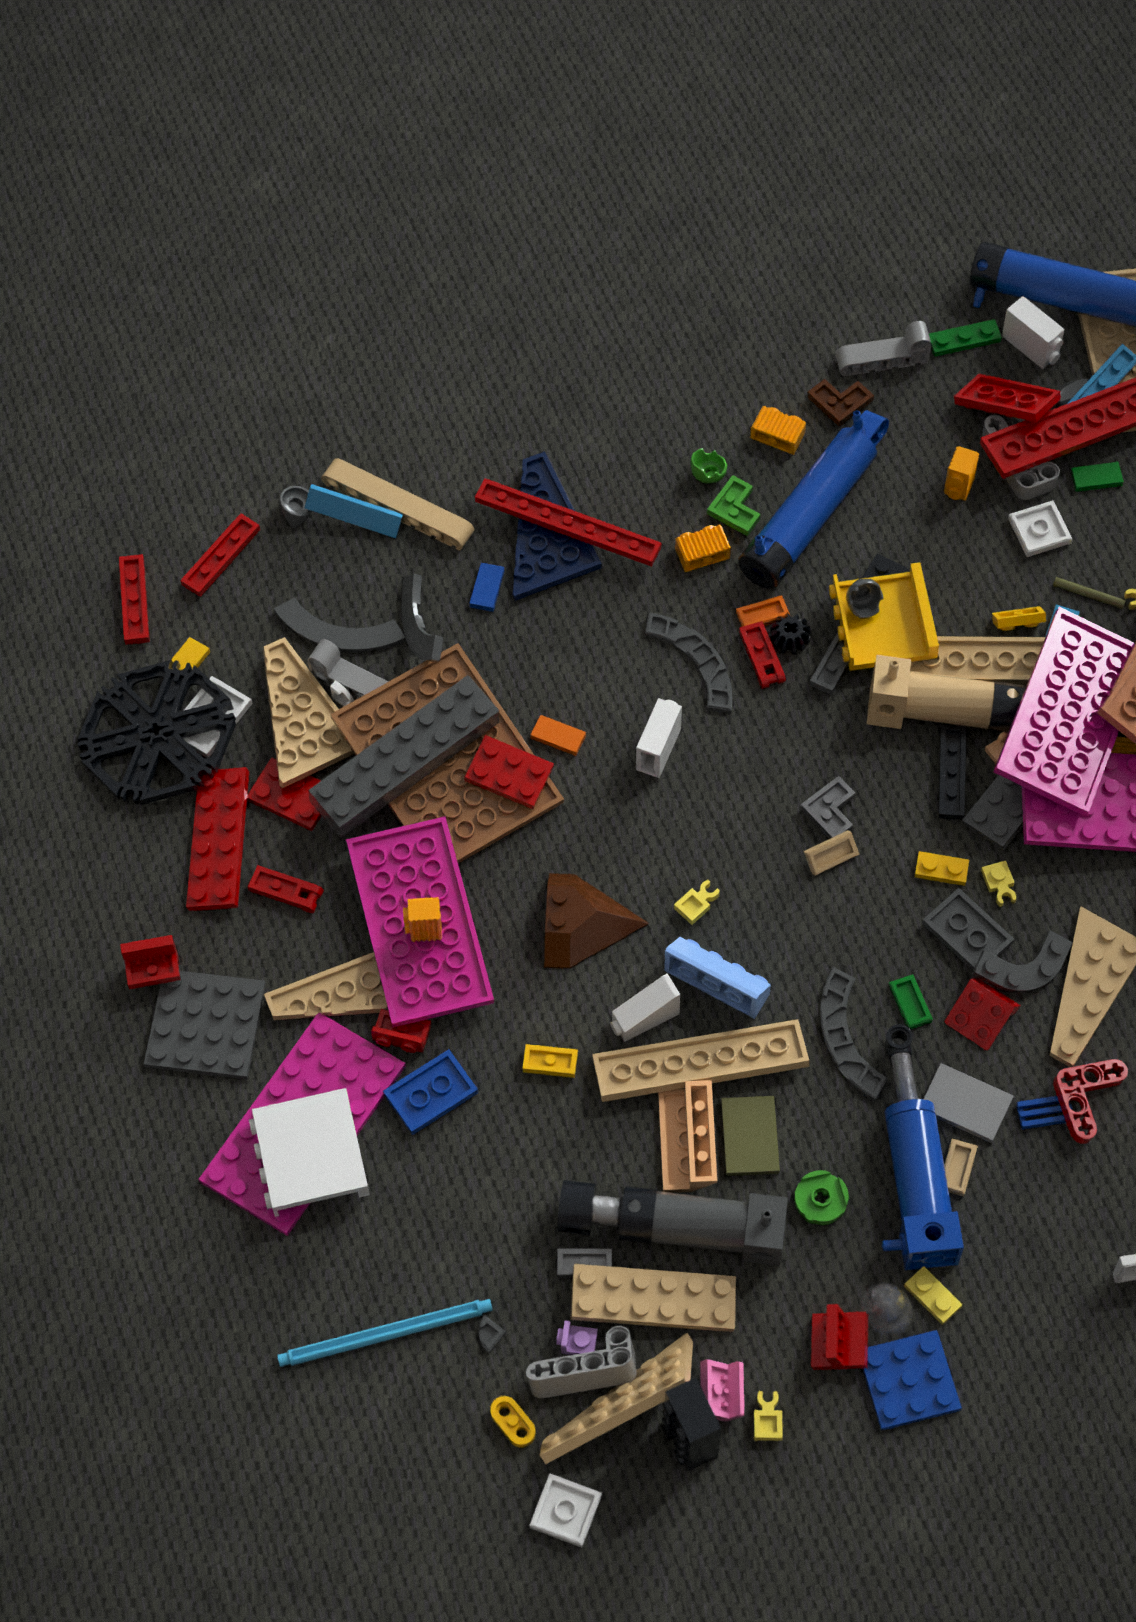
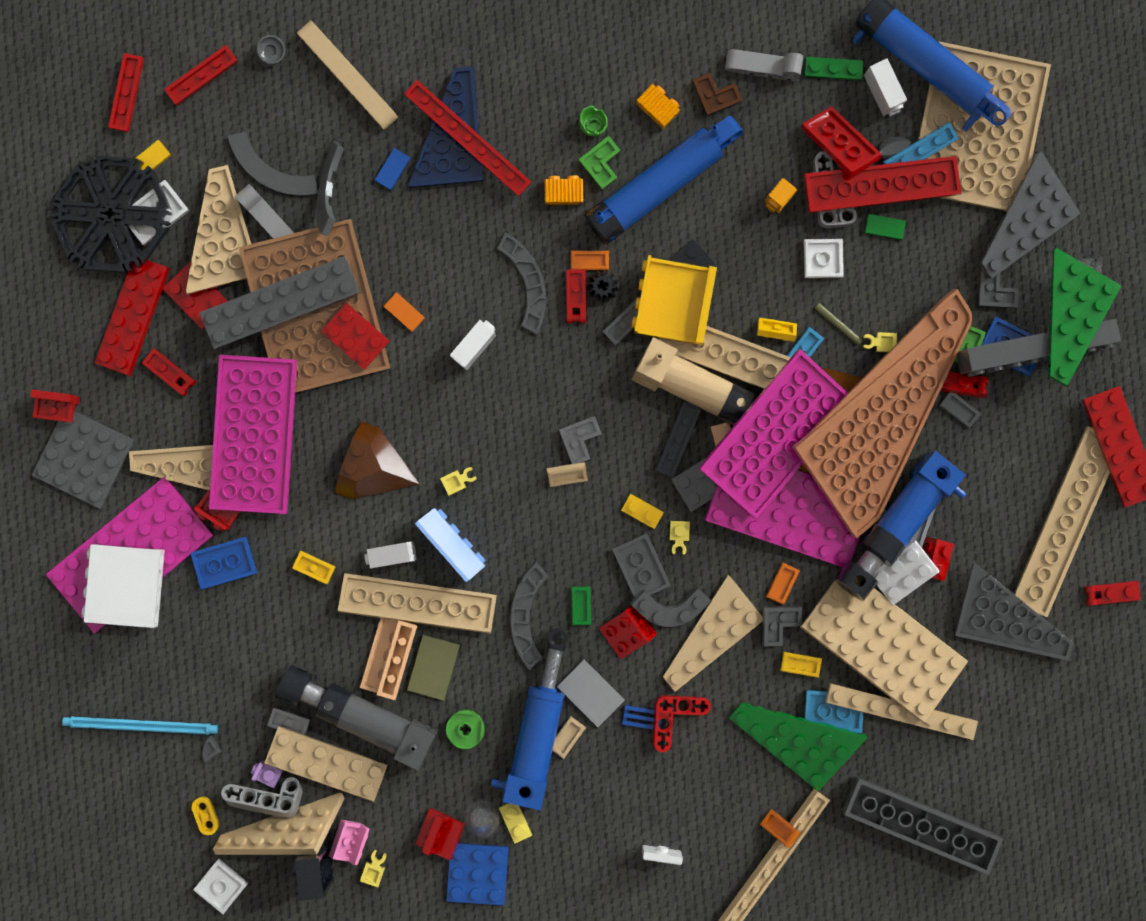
camera: 15 degrees right, 25 degrees up
(340, 694) = (256, 228): white tile -> none
(353, 511) = (310, 73): dark azure tile -> none
(423, 919) = (250, 444): light orange brick -> none
(864, 598) = (664, 282): dark grey hair -> none

